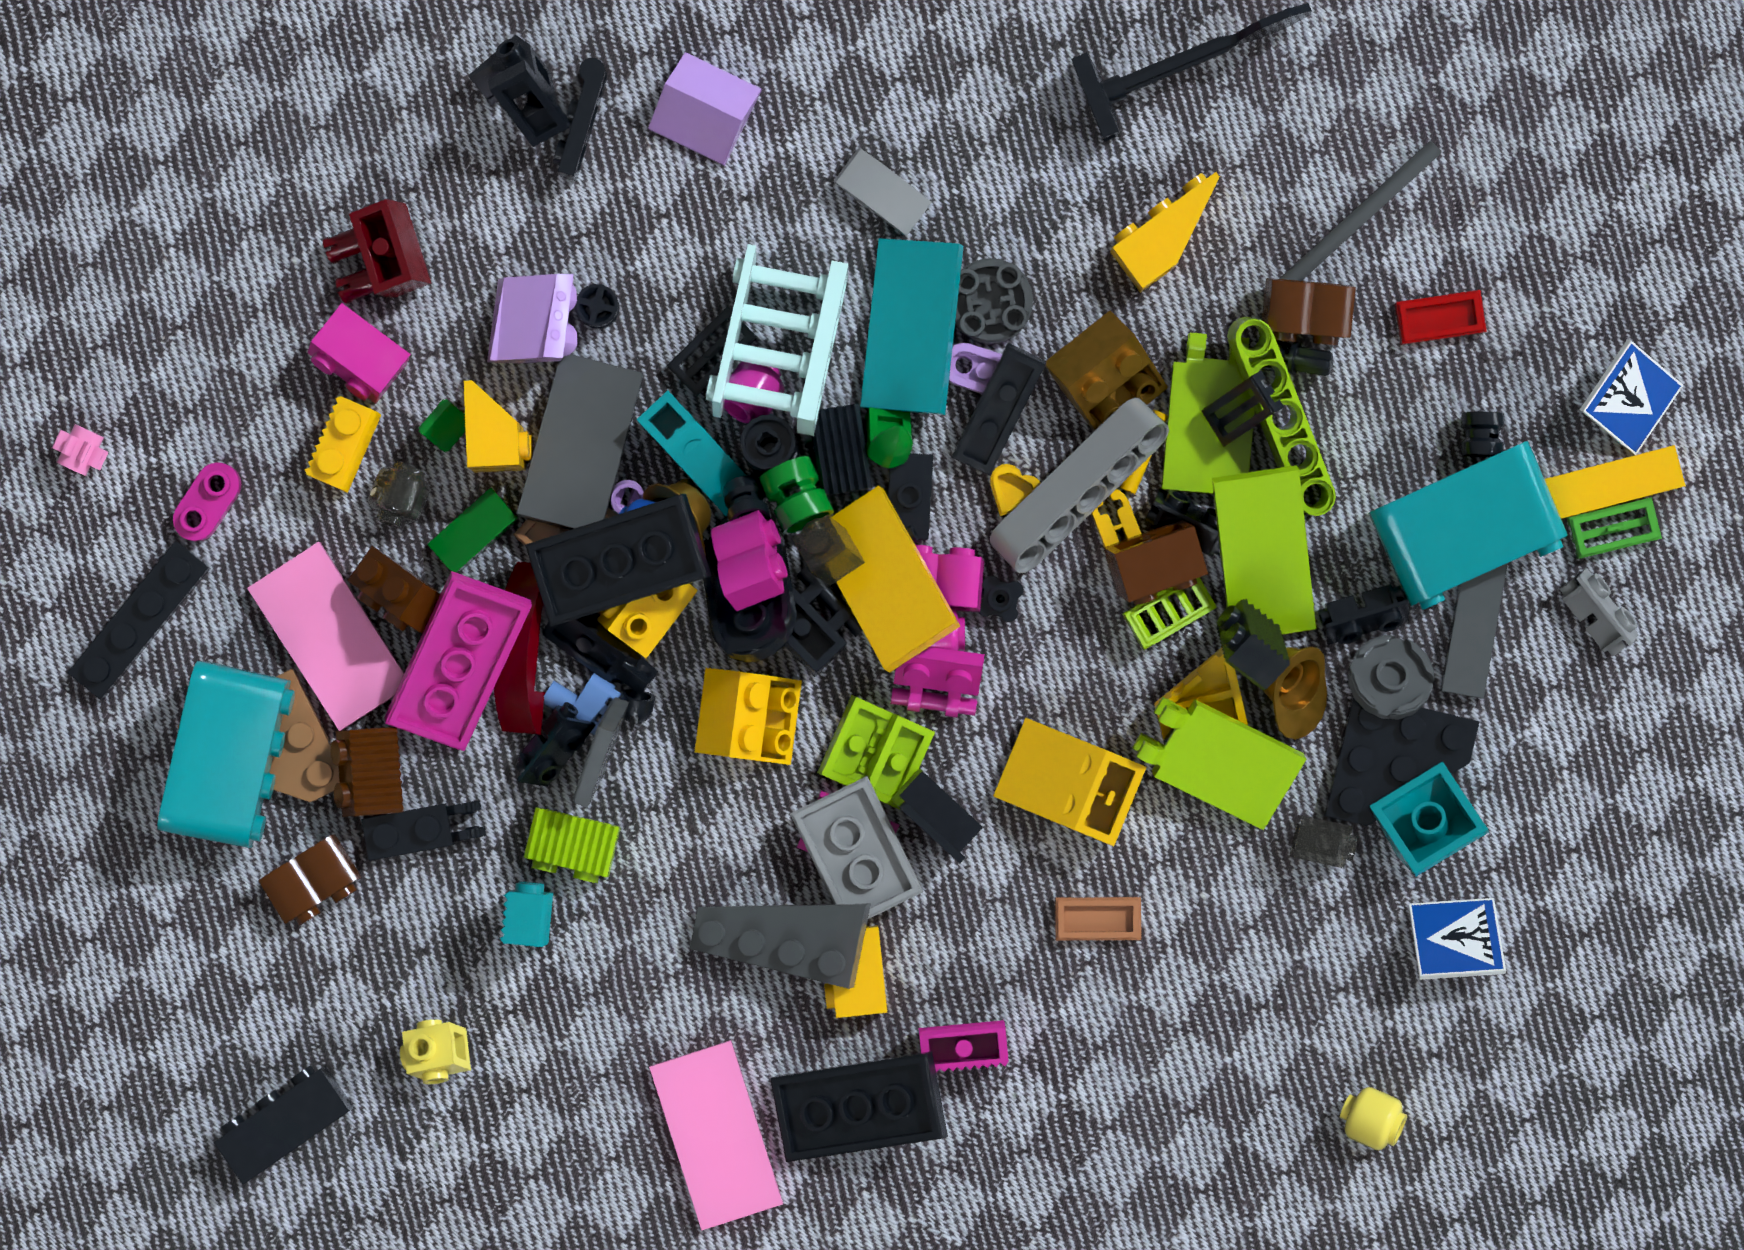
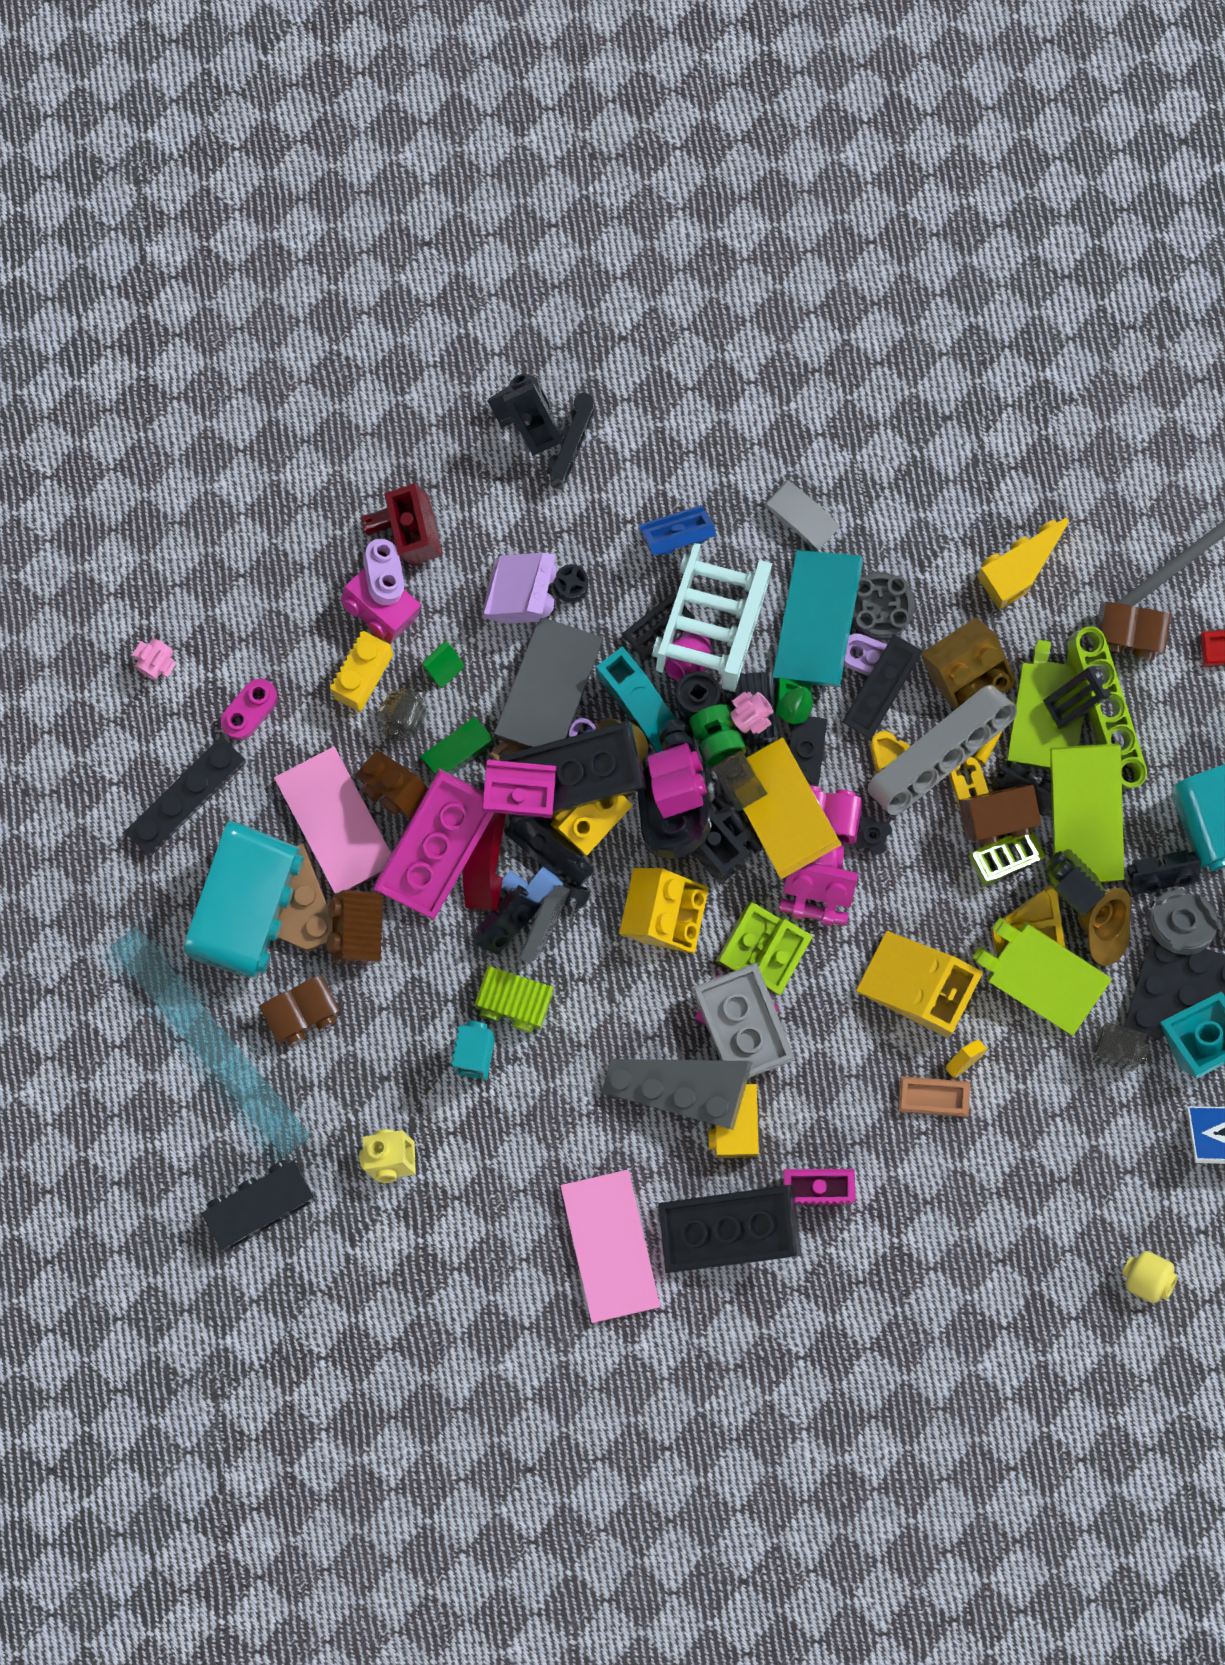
camera: 10 degrees right, 10 degrees down
(202, 925) = (210, 1042): none -> clear light blue tile
(358, 315) = (383, 569): none -> lavender plate
(417, 830) = (391, 979): black hinge -> none
(493, 436) = (481, 671): yellow slope -> none
(553, 589) = (519, 788): none -> dark pink plate
(704, 108) = (666, 443): lavender slope -> none
(725, 227) = (677, 530): none -> blue plate
(836, 464) = (751, 712): none -> bright pink gear
(937, 814) = (810, 1000): black panel -> none
(1104, 93) = (979, 454): black piece -> none
(1134, 869) = (965, 1058): none -> yellow tile
(1304, 359) = (1129, 669): black axle -> none

